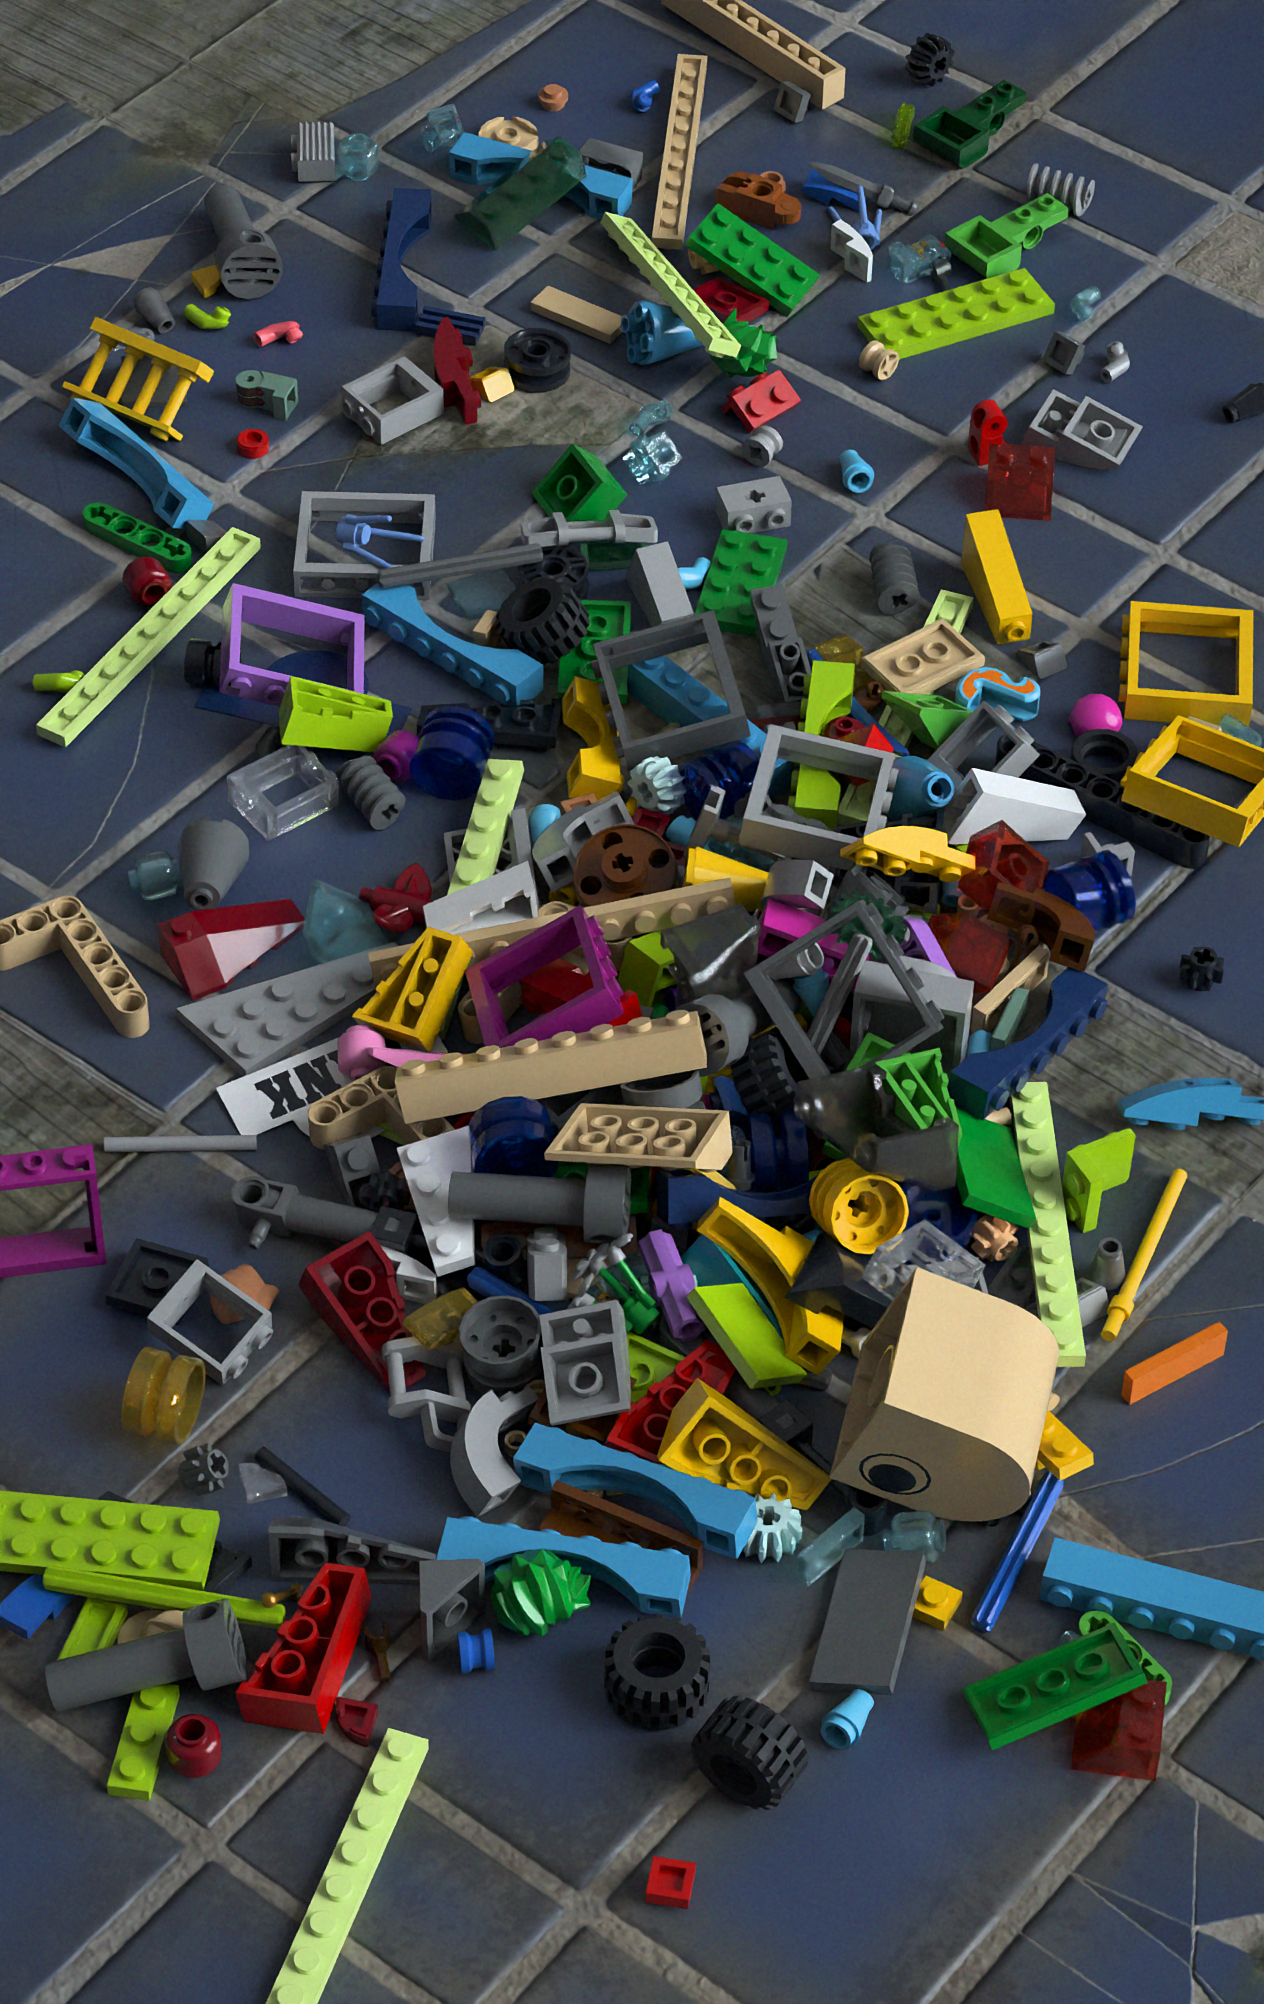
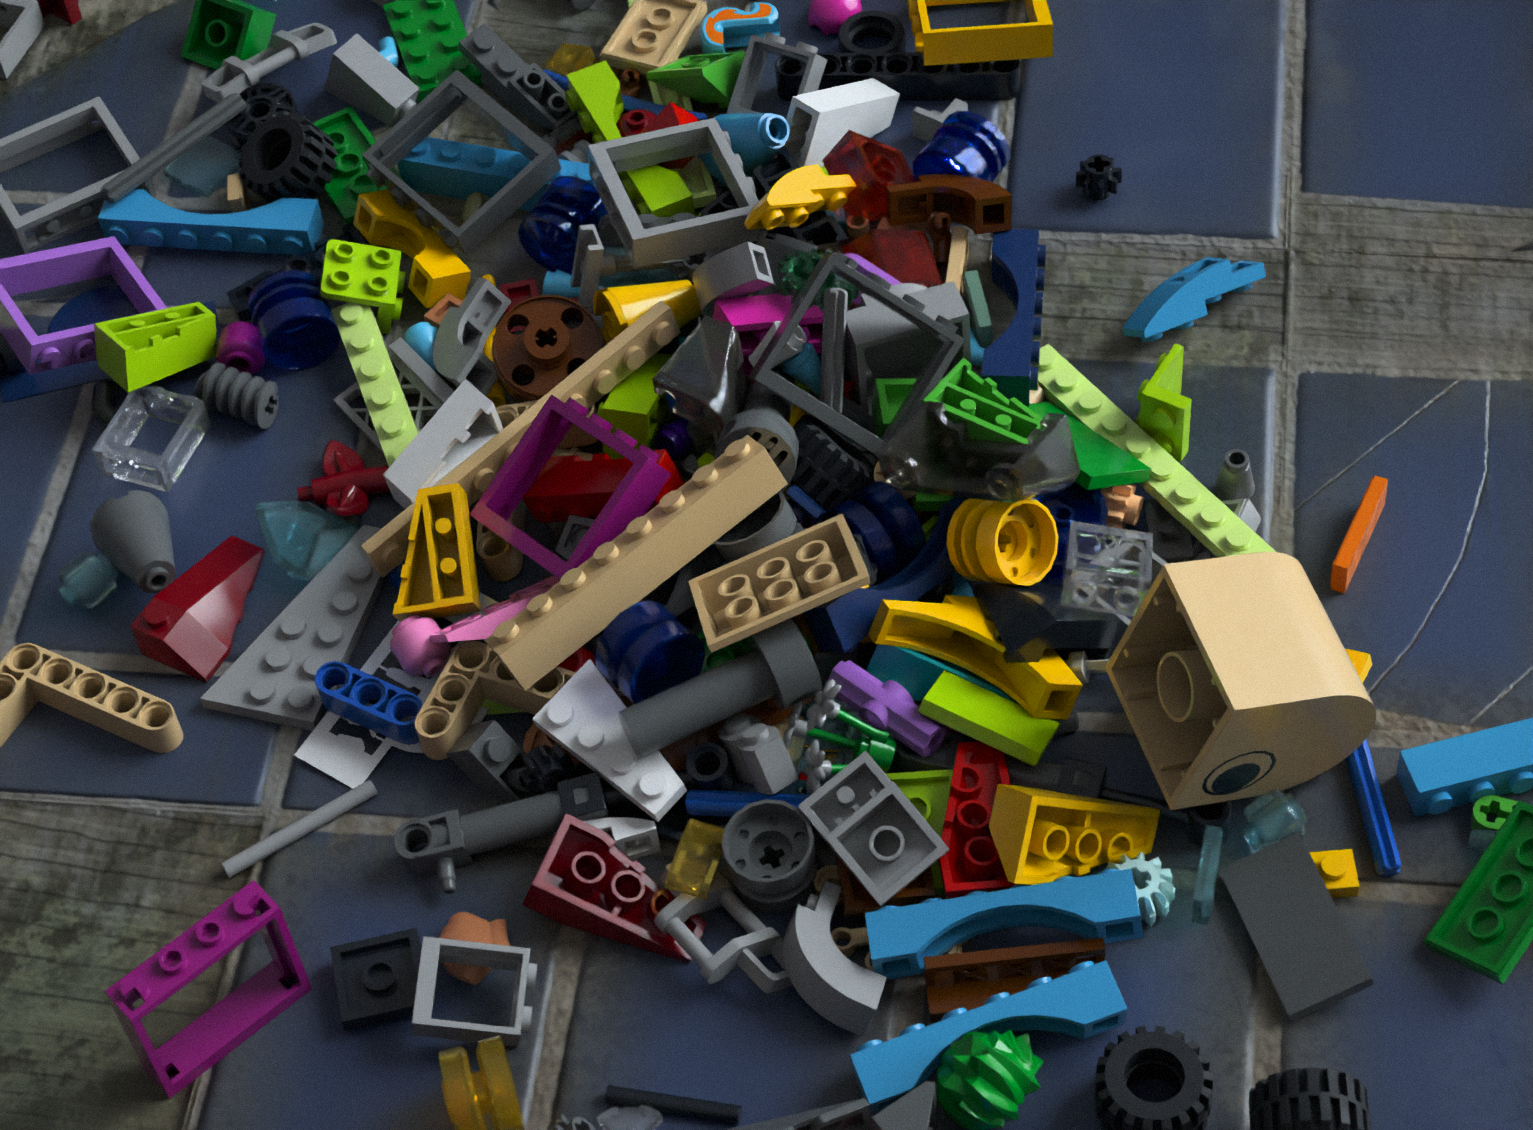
camera: 25 degrees left, 5 degrees up
(290, 1063) = (361, 688): none -> blue beam
(354, 532) = (51, 164): medium blue plant -> none
(532, 747) = (364, 277): none -> lime bracket
(608, 555) = (301, 74): clear green slope -> none
(657, 785) = (504, 256): light aqua gear -> none
(846, 1721) = (1352, 1034): medium azure cone -> none
(1122, 1304) = (1269, 506): yellow bar -> none

